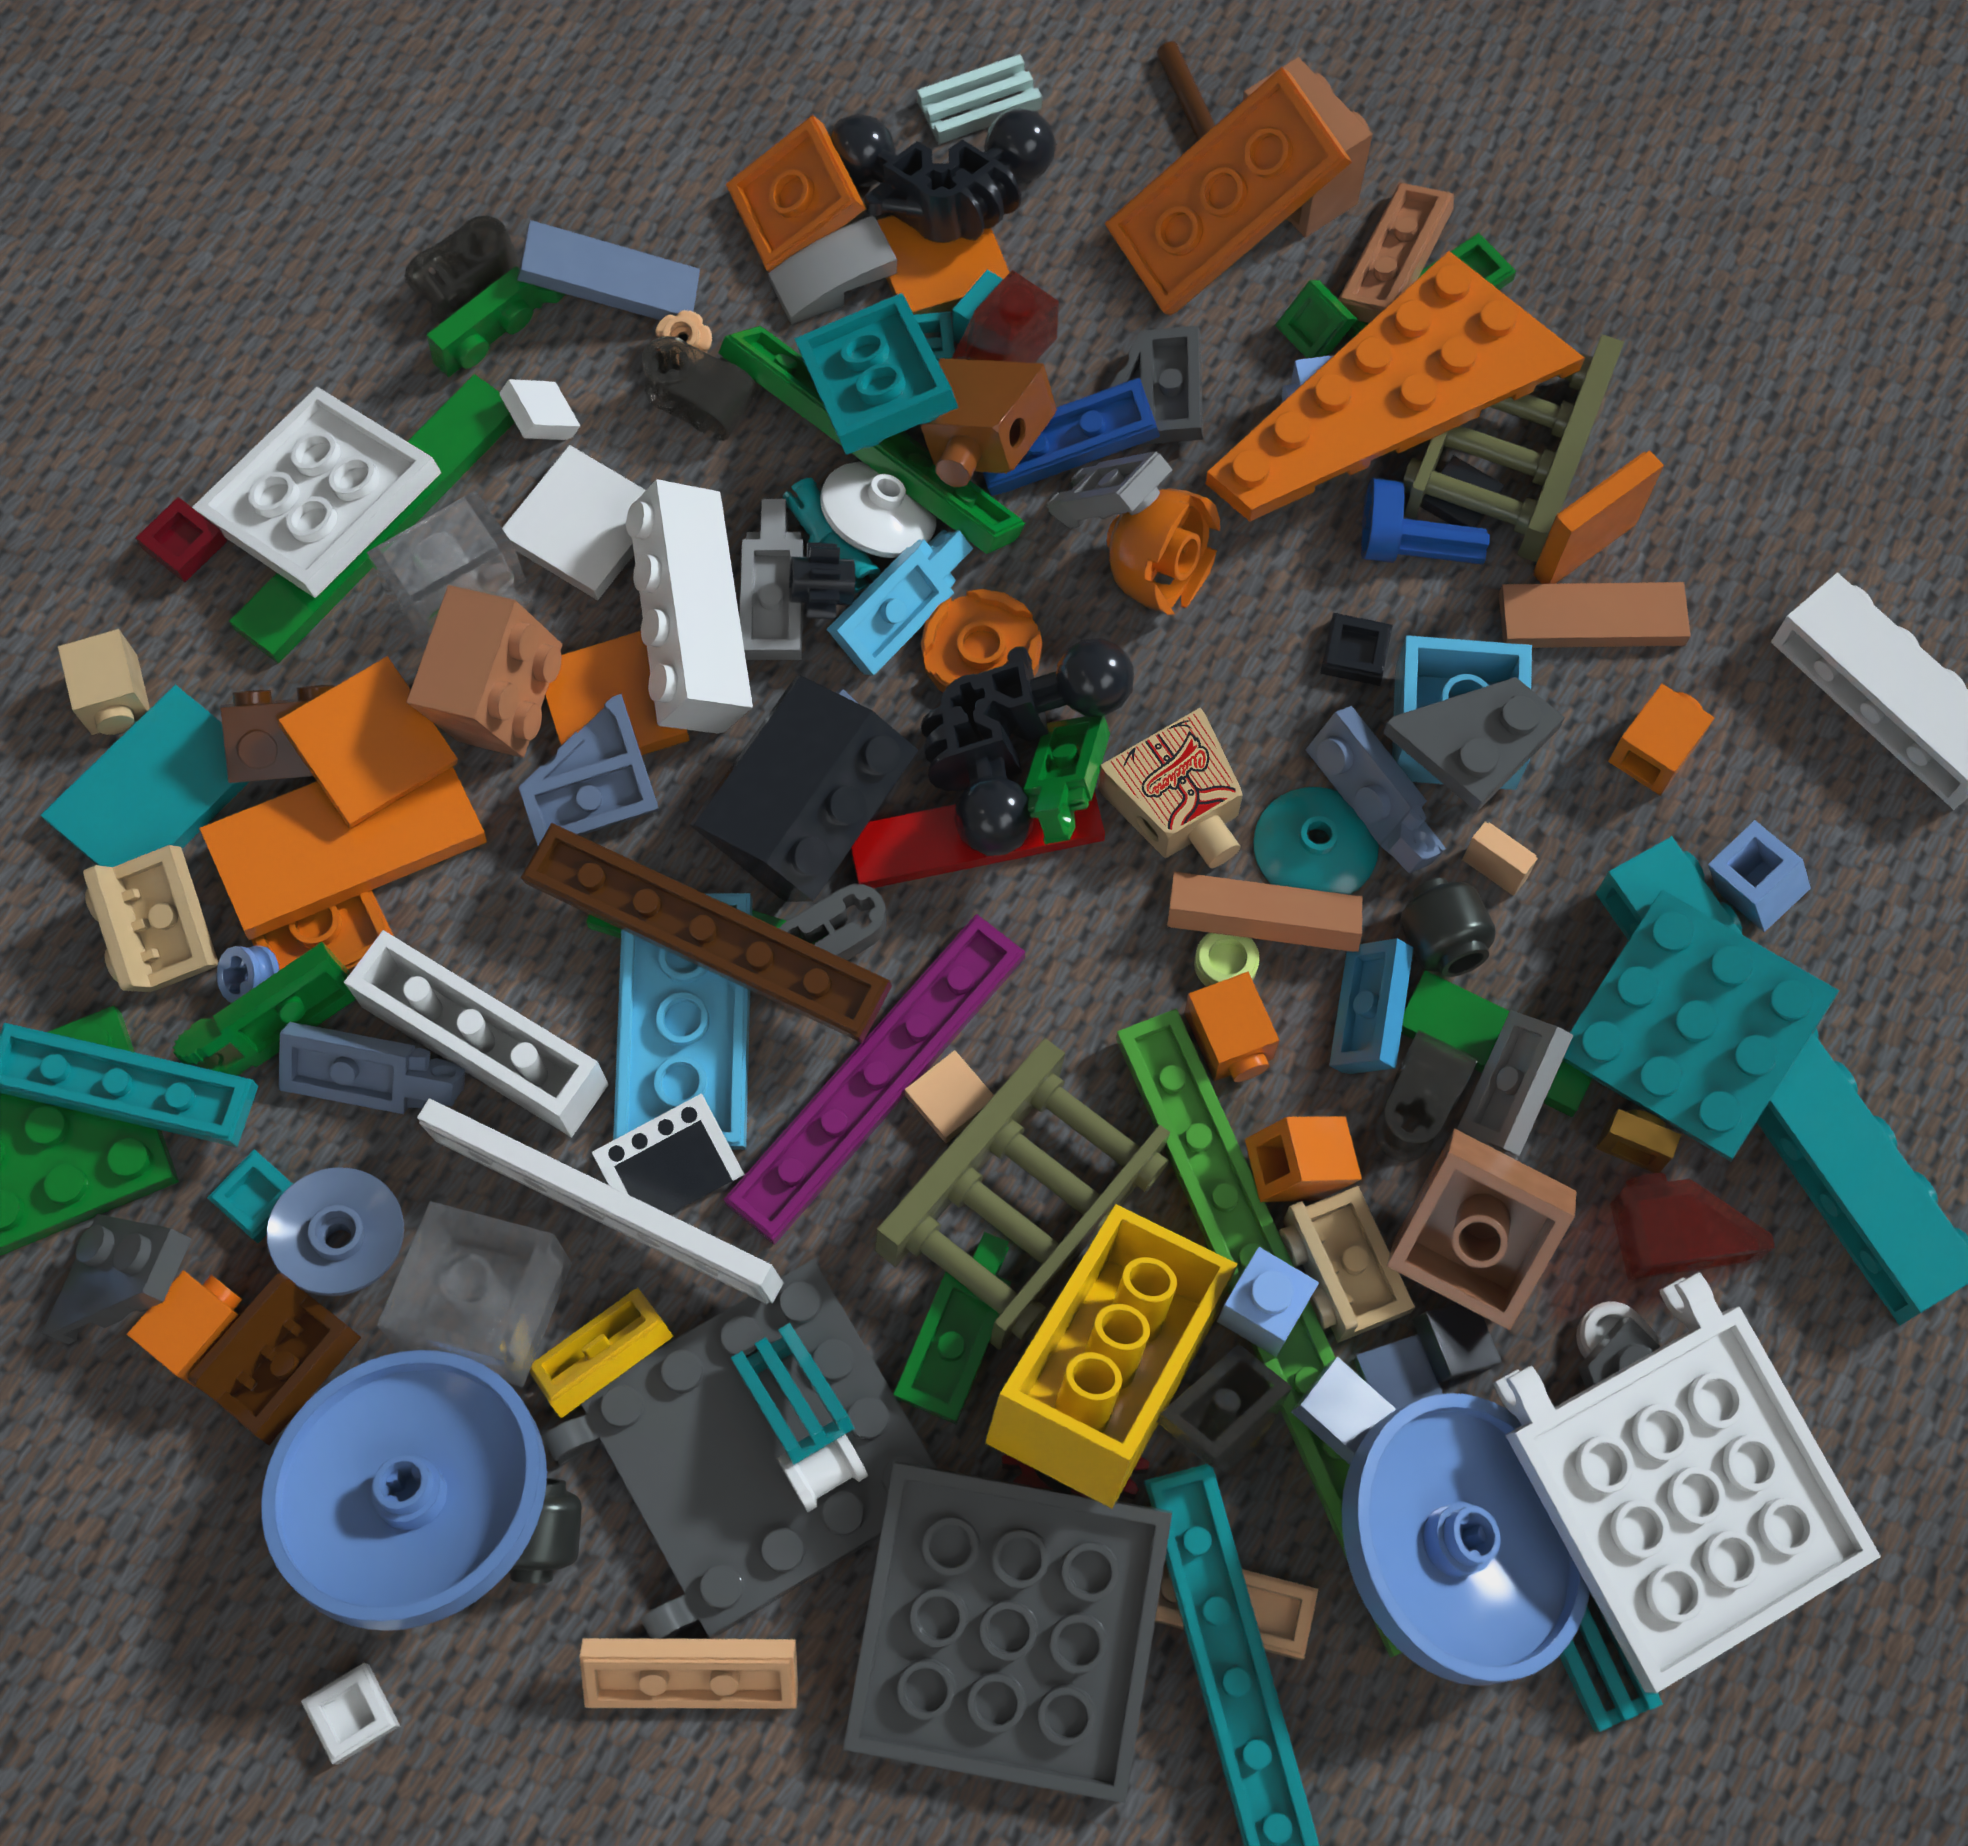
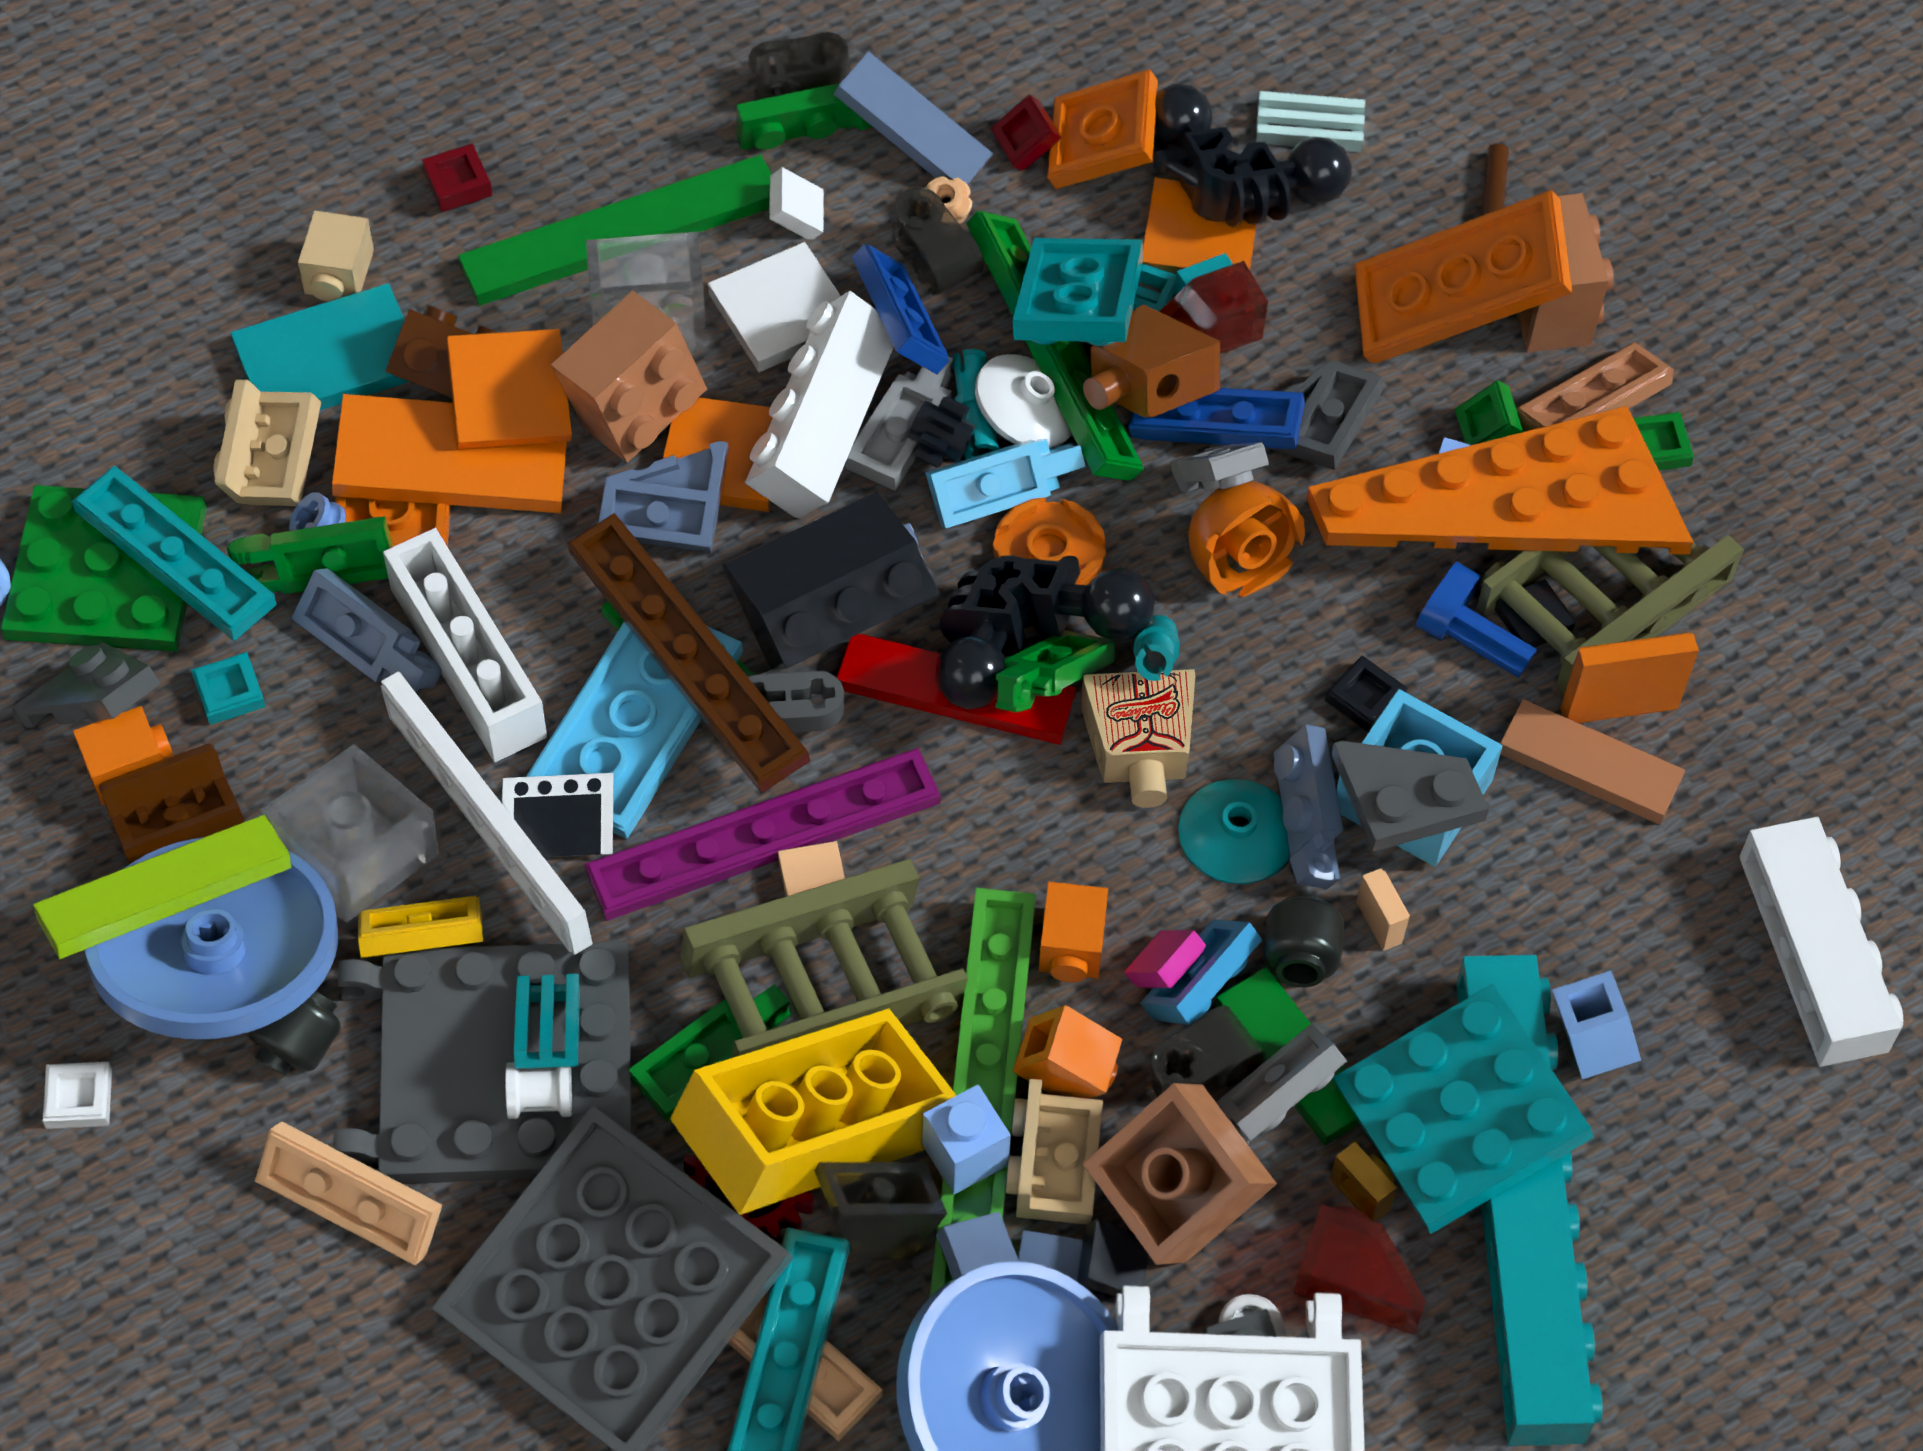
camera: 25 degrees right, 10 degrees down
(317, 491) = (582, 186): white plate -> none
(323, 1466) = (162, 886): none -> lime tile
(328, 1203) = (271, 718): sand blue dish -> none
(709, 472) = (900, 308): none -> blue tile
(720, 233) = (1026, 133): none -> dark red tile
(821, 272) = (1110, 196): light grey slope -> none
(1156, 706) = (1156, 648): none -> teal pin
(1224, 957) = (1109, 872): yellowish green tile -> none
(1265, 912) = (1158, 858): nougat tile -> none
(1331, 1011) = (1165, 959): none -> dark pink tile
(1661, 738) = (1584, 881): orange brick -> none

